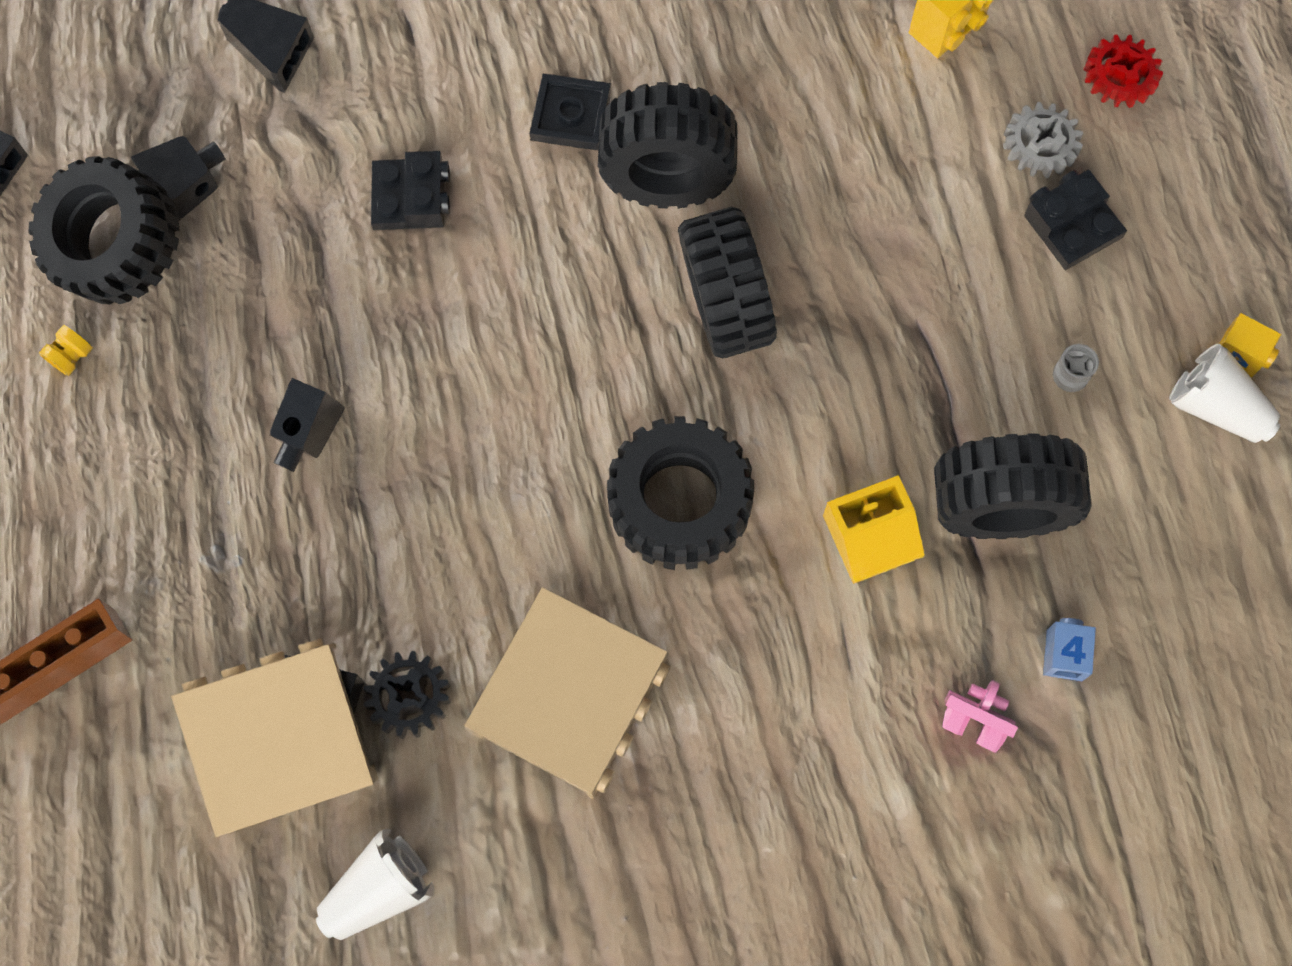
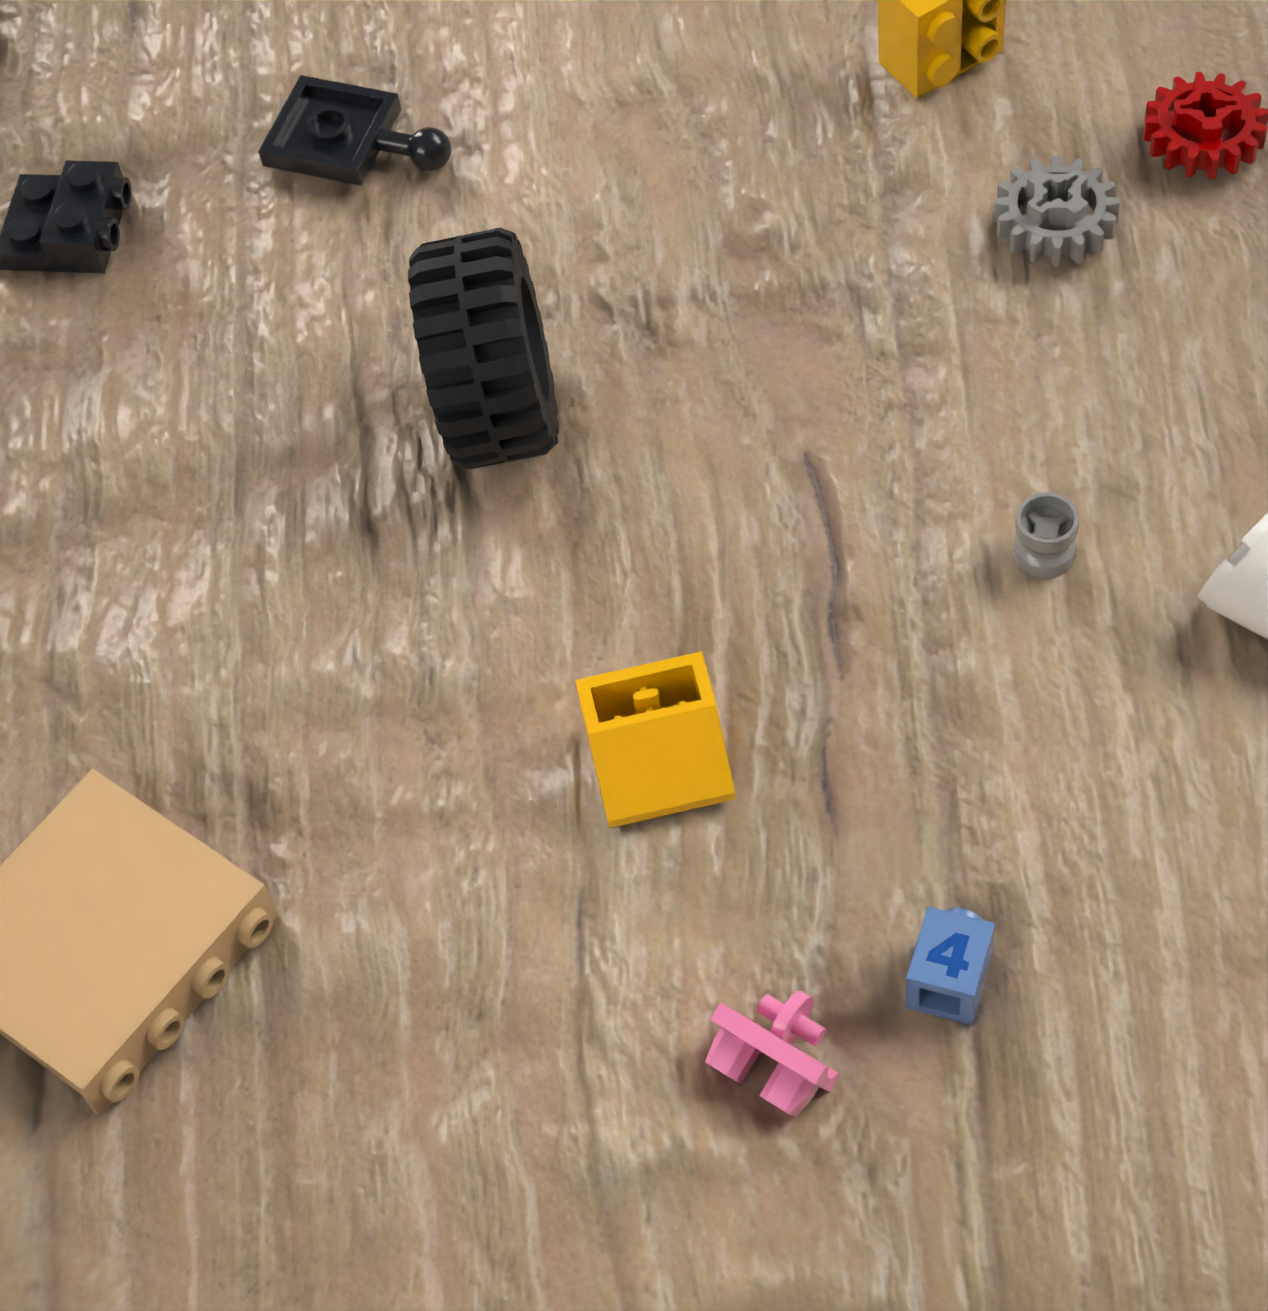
camera: 15 degrees right, 15 degrees down
(668, 145) = (449, 111): black tyre -> none
(680, 446) = (338, 591): black tyre -> none
(1012, 486) = (878, 677): black tyre -> none
(1074, 218) = (1089, 324): black plate -> none

